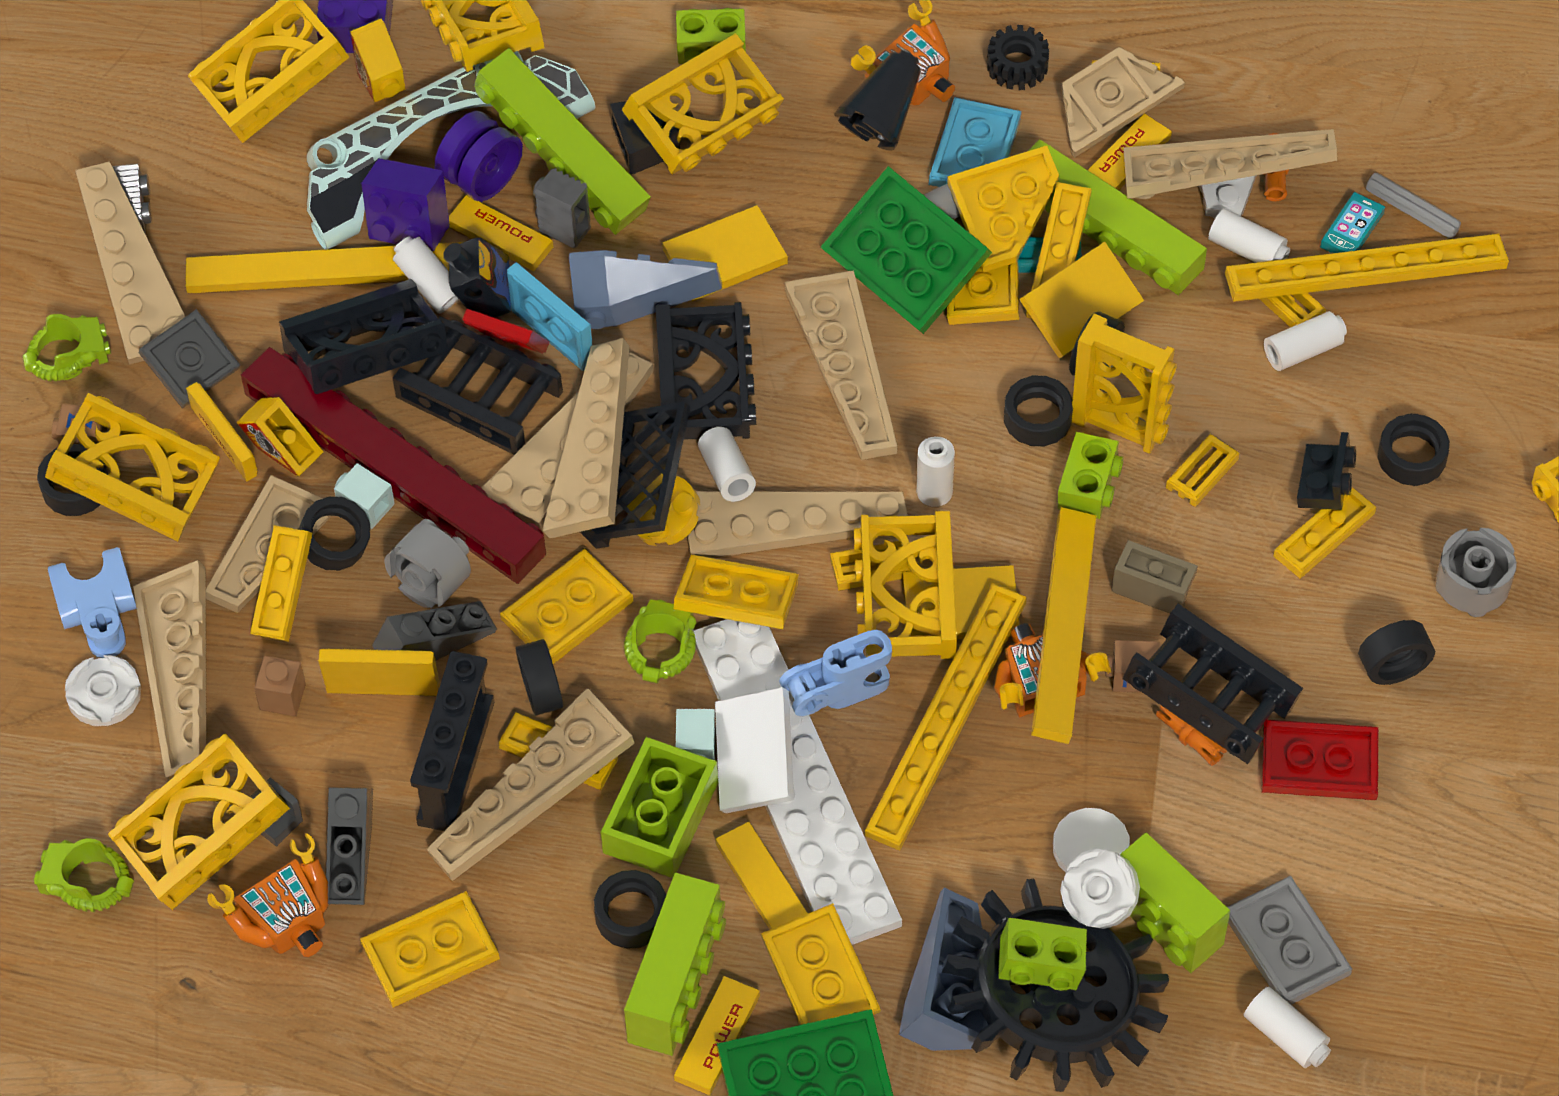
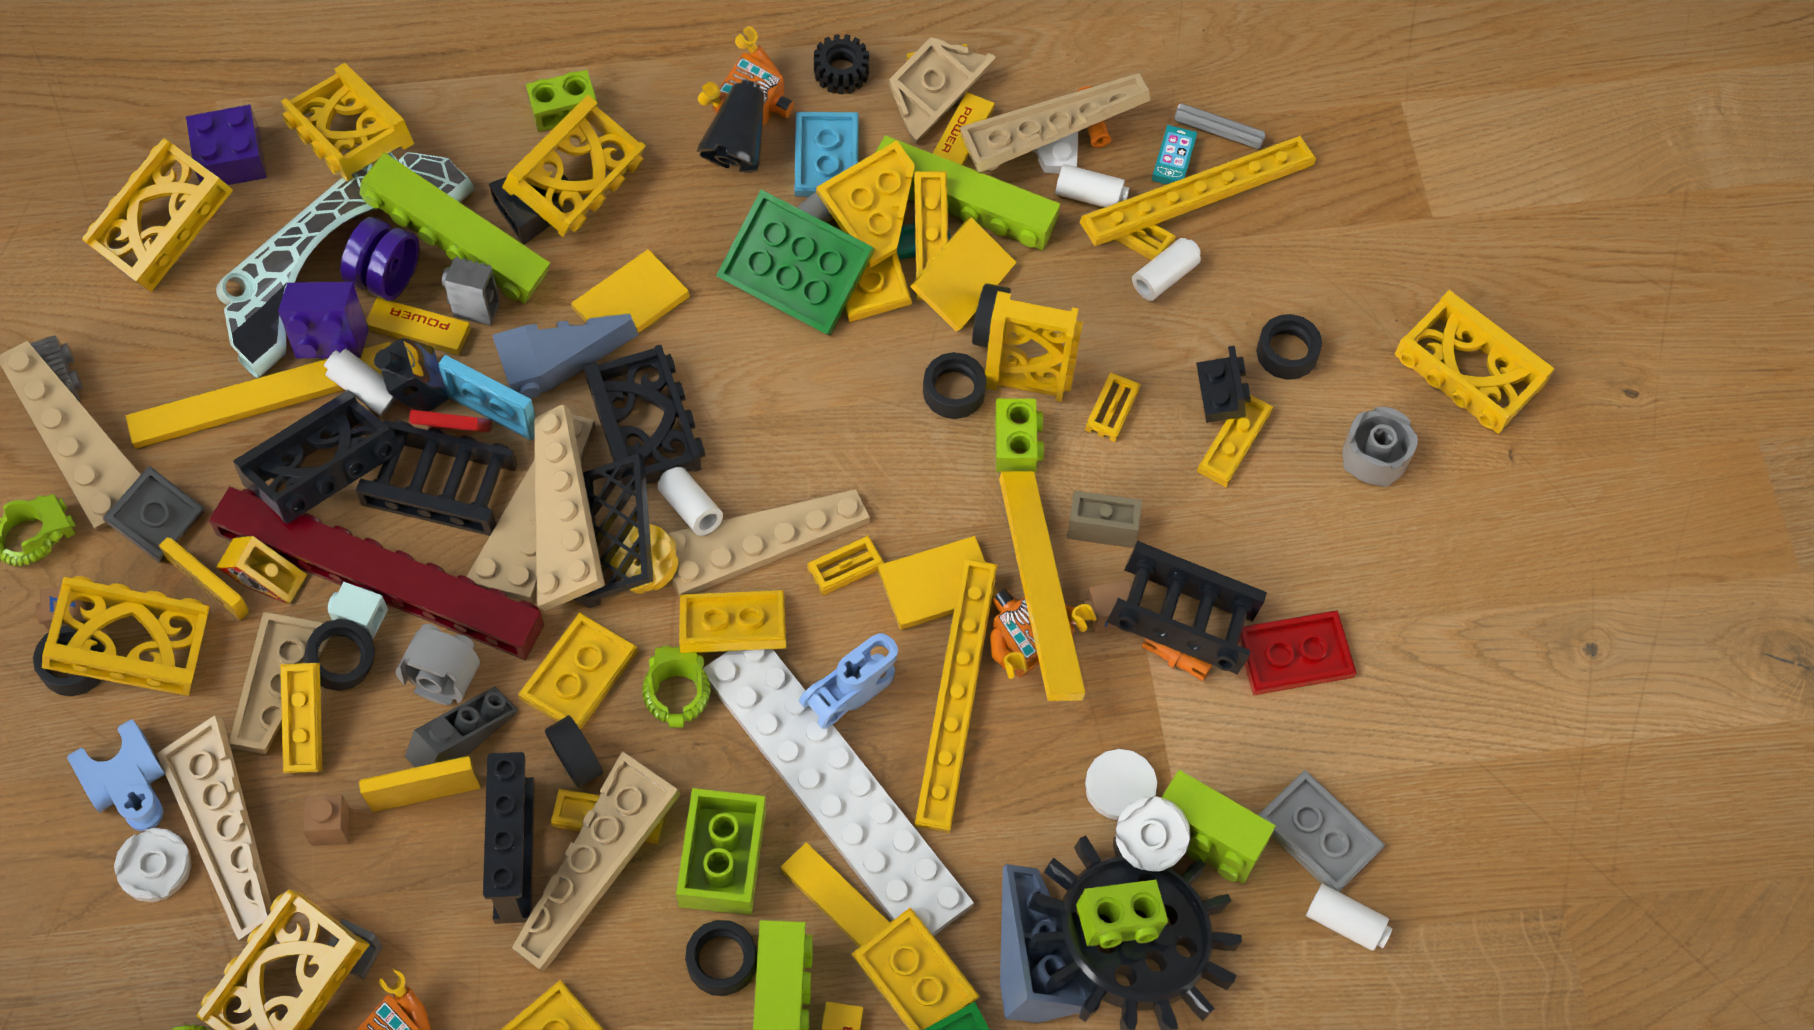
camera: 20 degrees left, 5 degrees up
(348, 844) = (434, 961): dark grey slope -> none
(377, 61) = (260, 187): yellow slope -> none
(696, 731) = (734, 770): light aqua brick -> none
(754, 750) = (794, 773): white tile -> none
(841, 343) = (759, 360): tan wing -> none
(935, 471) = (882, 465): white brick -> none
(935, 548) = (903, 537): yellow fence -> none
(1396, 652) = (1336, 538): black tyre -> none

